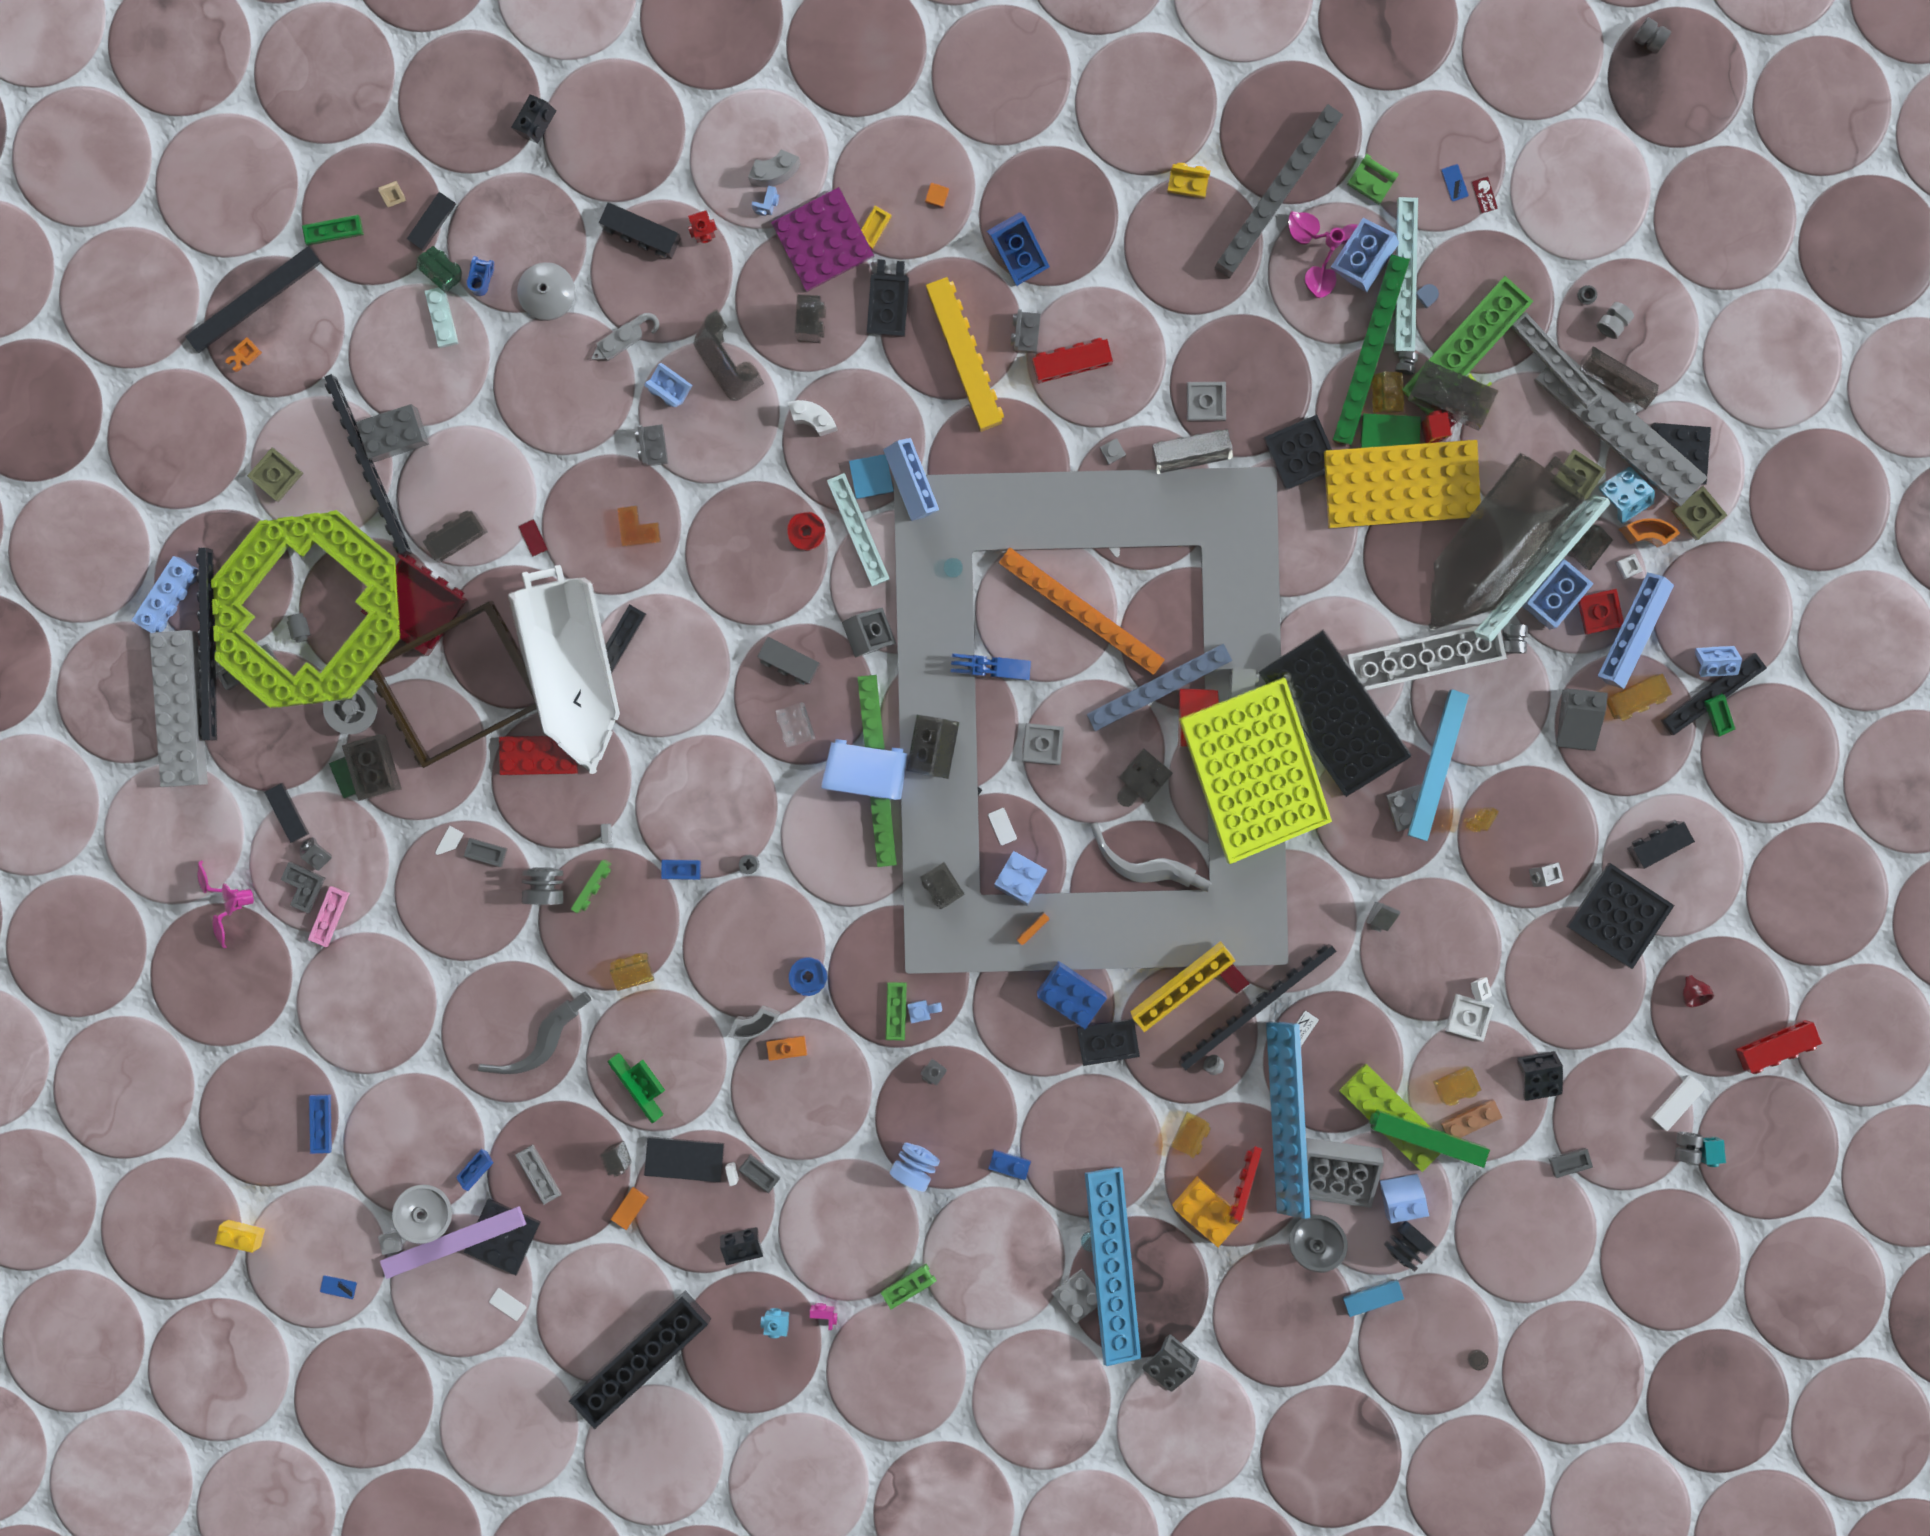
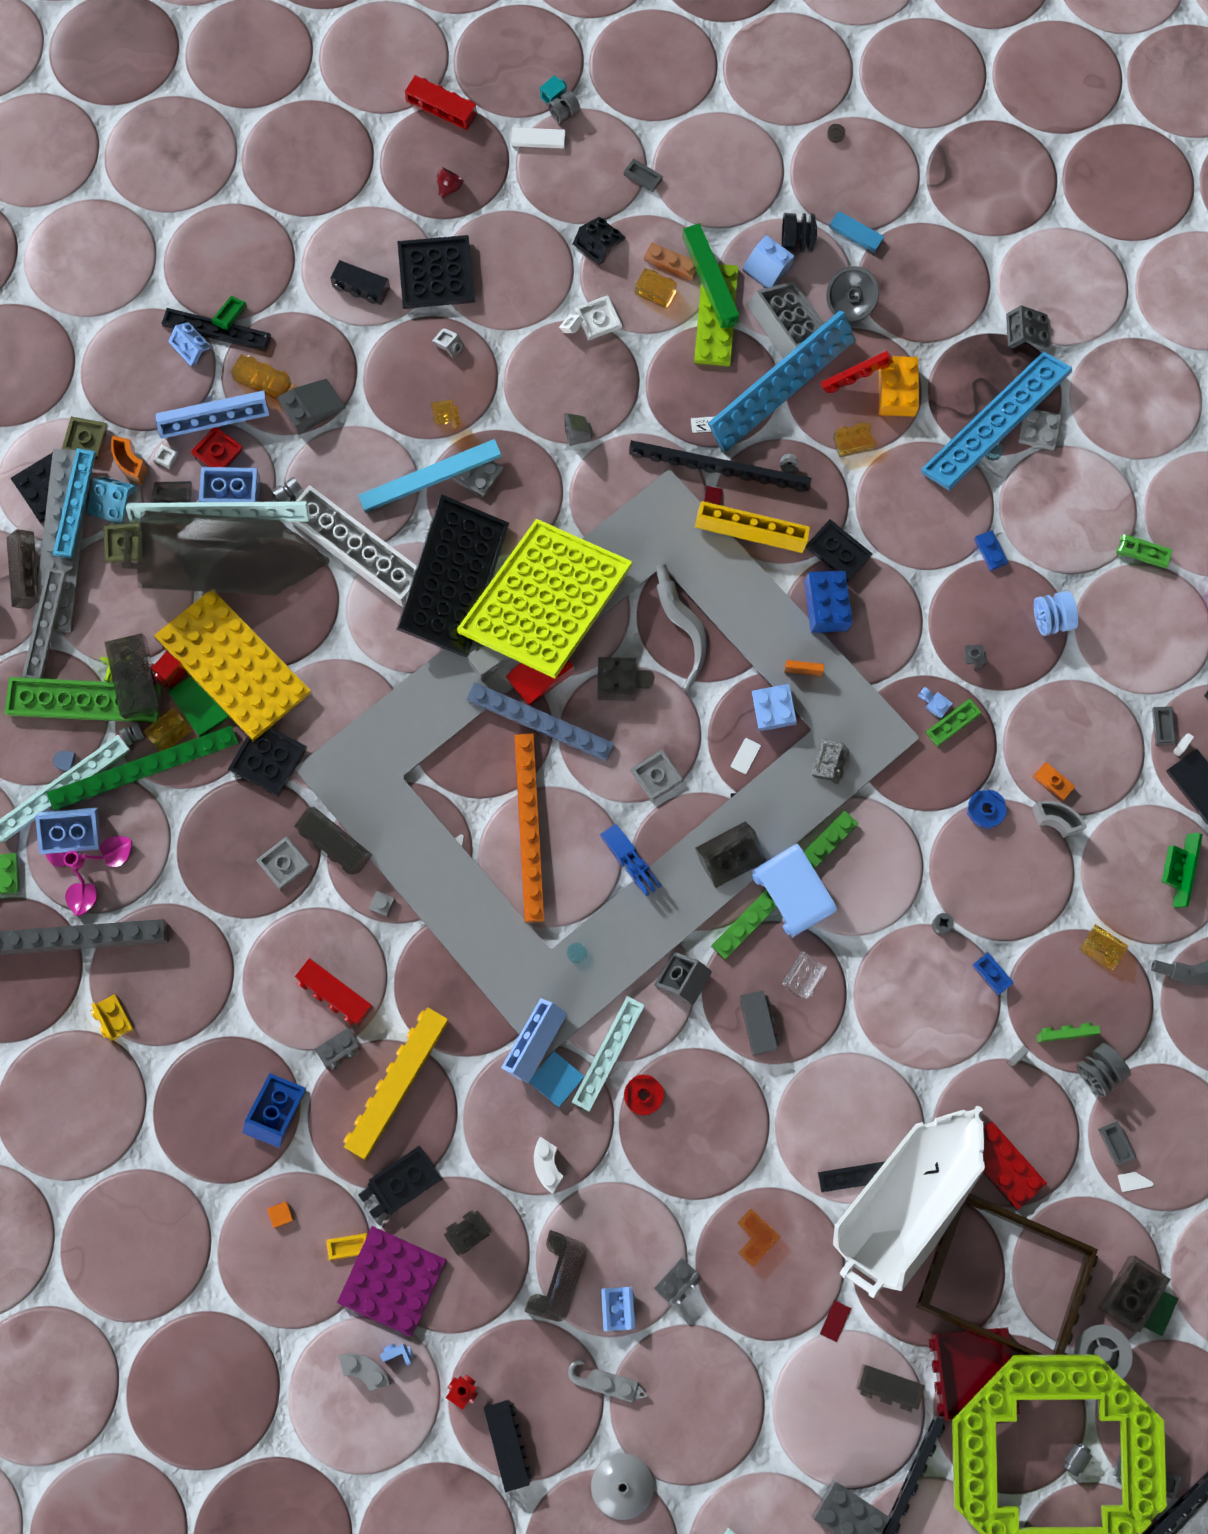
camera: 135 degrees left, 15 degrees down
(1643, 458) = (74, 503): none -> medium azure tile

